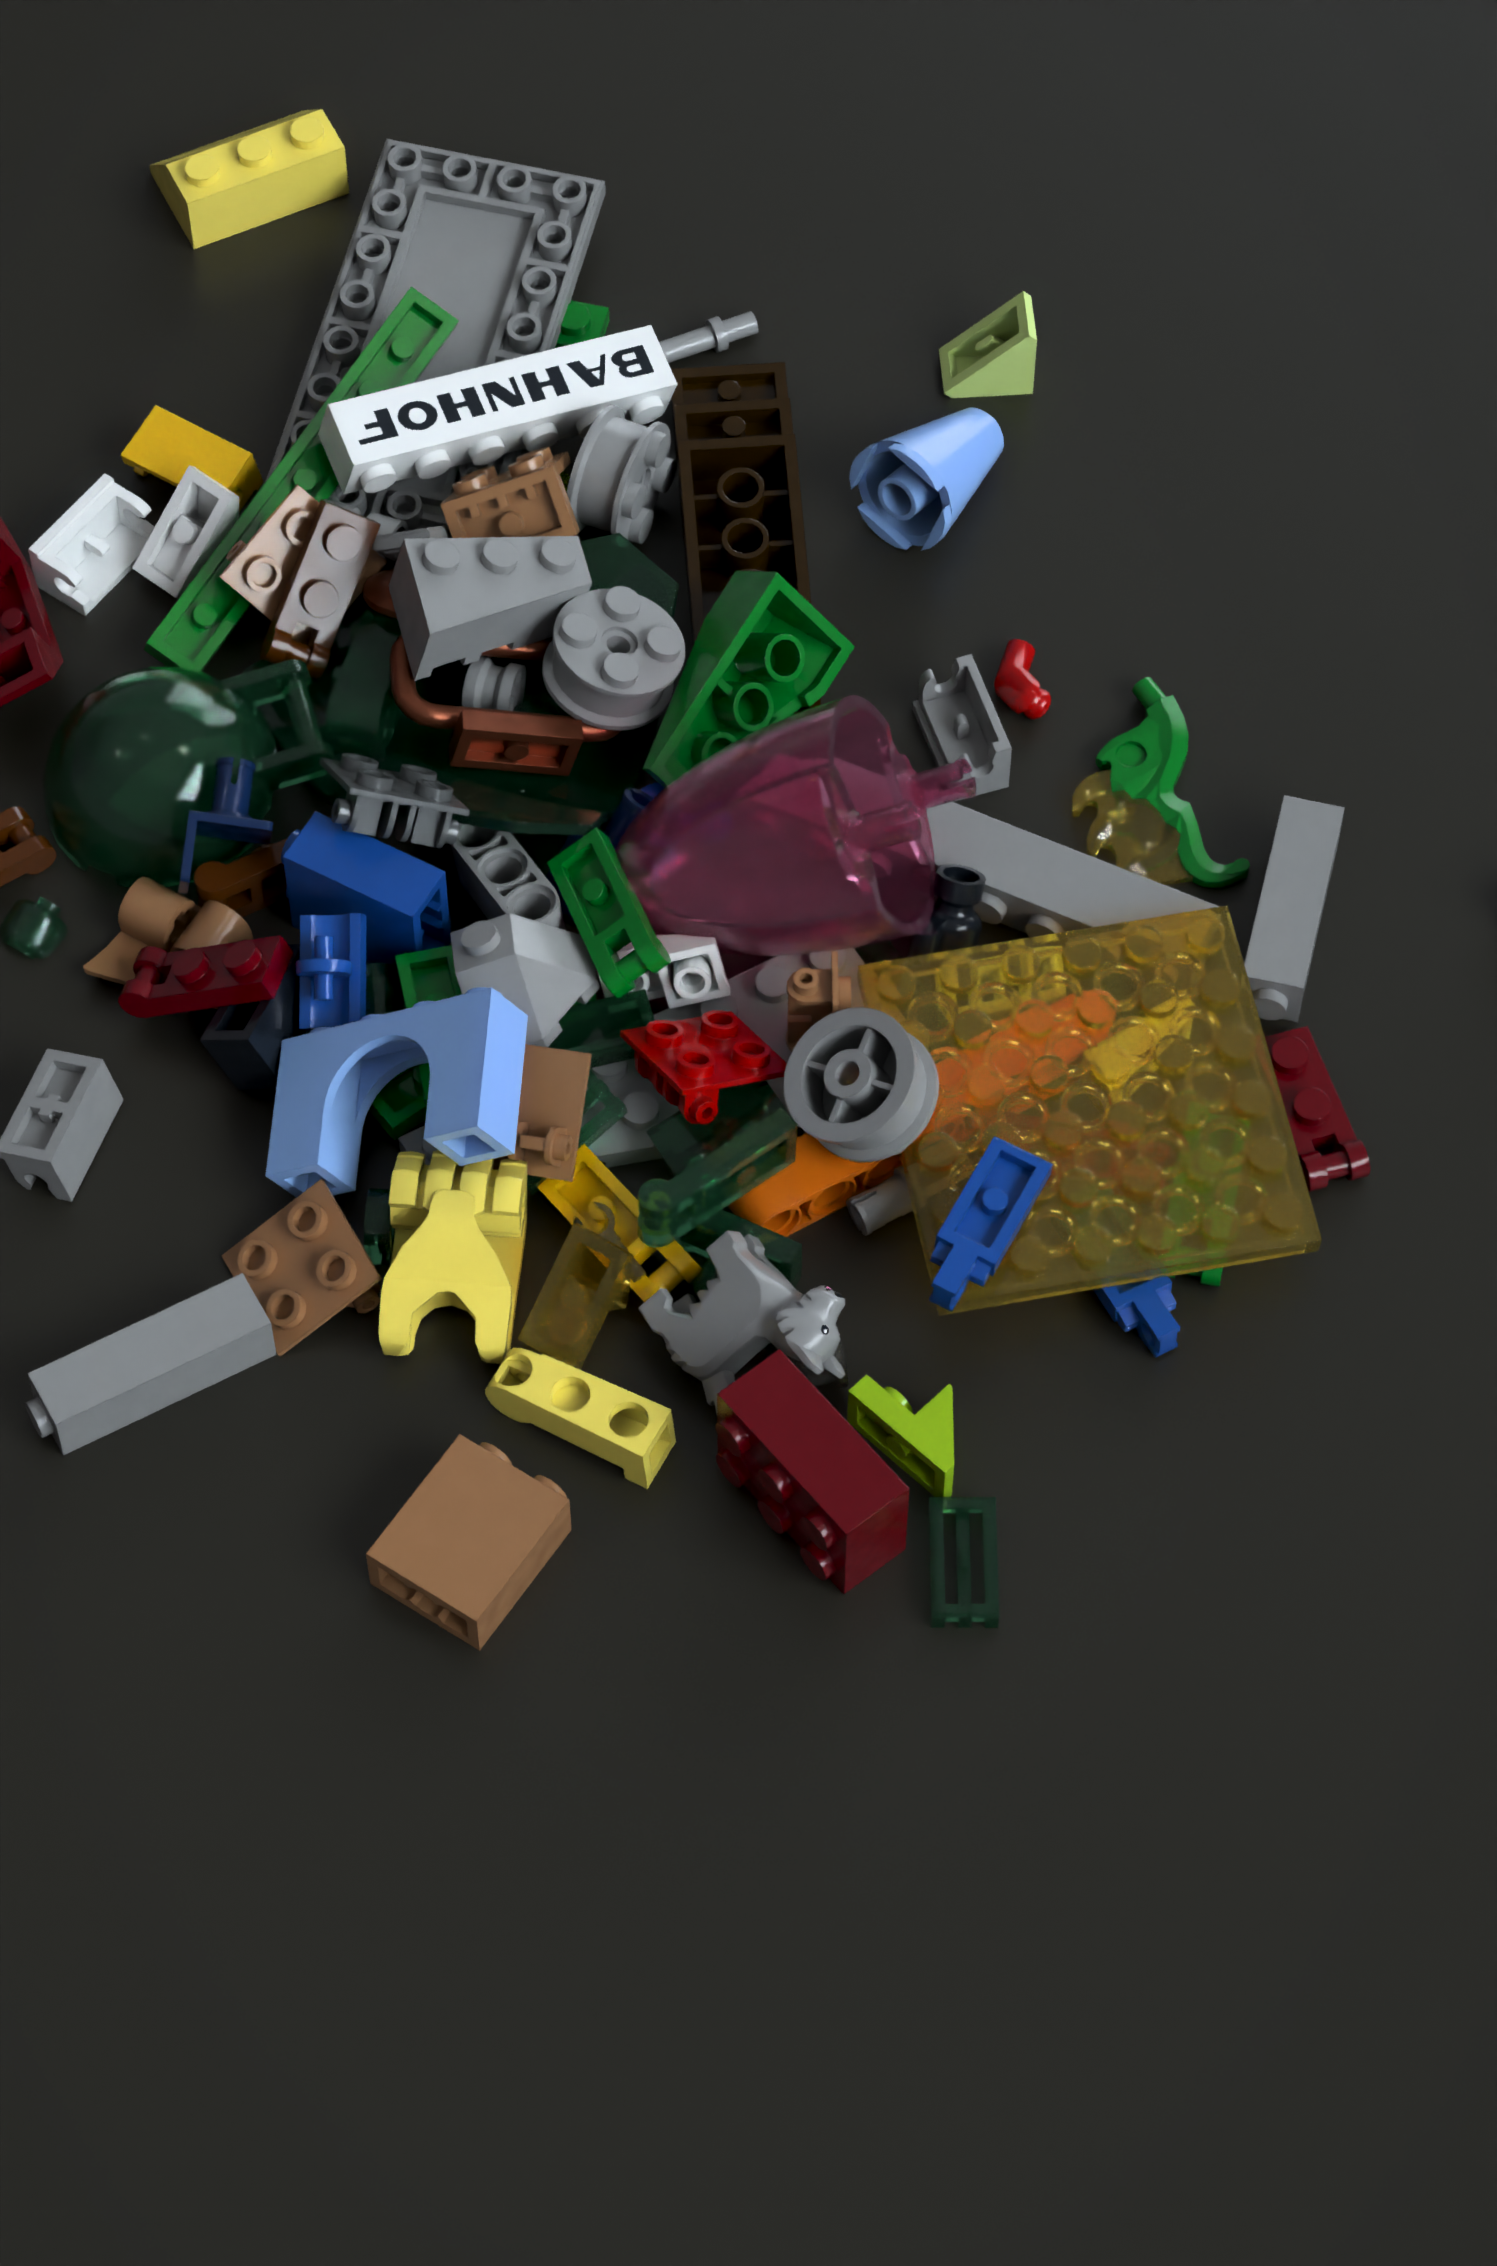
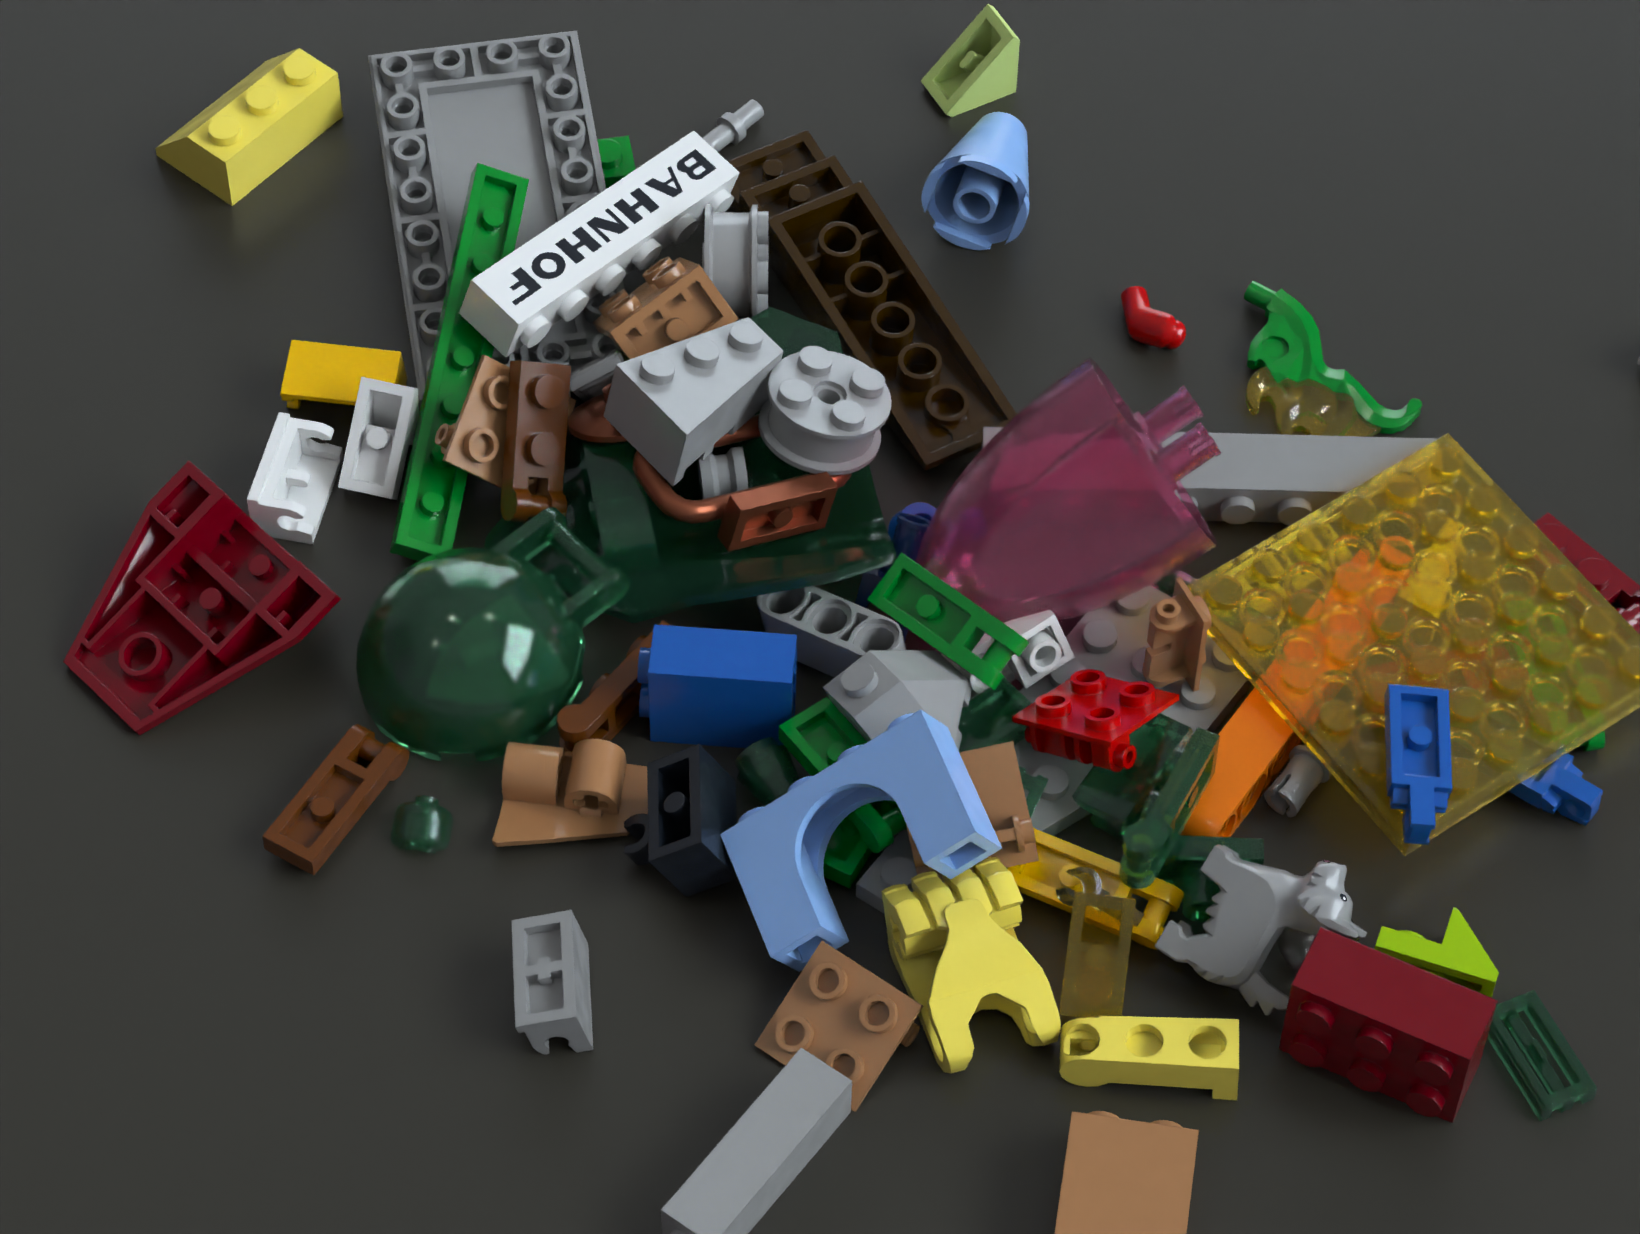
camera: 25 degrees left, 5 degrees down
(205, 977) = (620, 805): dark red plate -> none
(227, 815) = (571, 663): dark blue bracket -> none
(332, 970) = (738, 757): blue hips -> none
(377, 793) = (720, 591): dark grey hinge -> none
(377, 1227) = (885, 957): tile -> none
(750, 667) = (941, 375): green wedge -> none
(861, 1084) = (1271, 710): light grey wheel -> none
(953, 920) = (1219, 502): black piece -> none
(962, 724) = (1133, 362): light grey hinge -> none
(1292, 906) = (1478, 409): light grey brick -> none

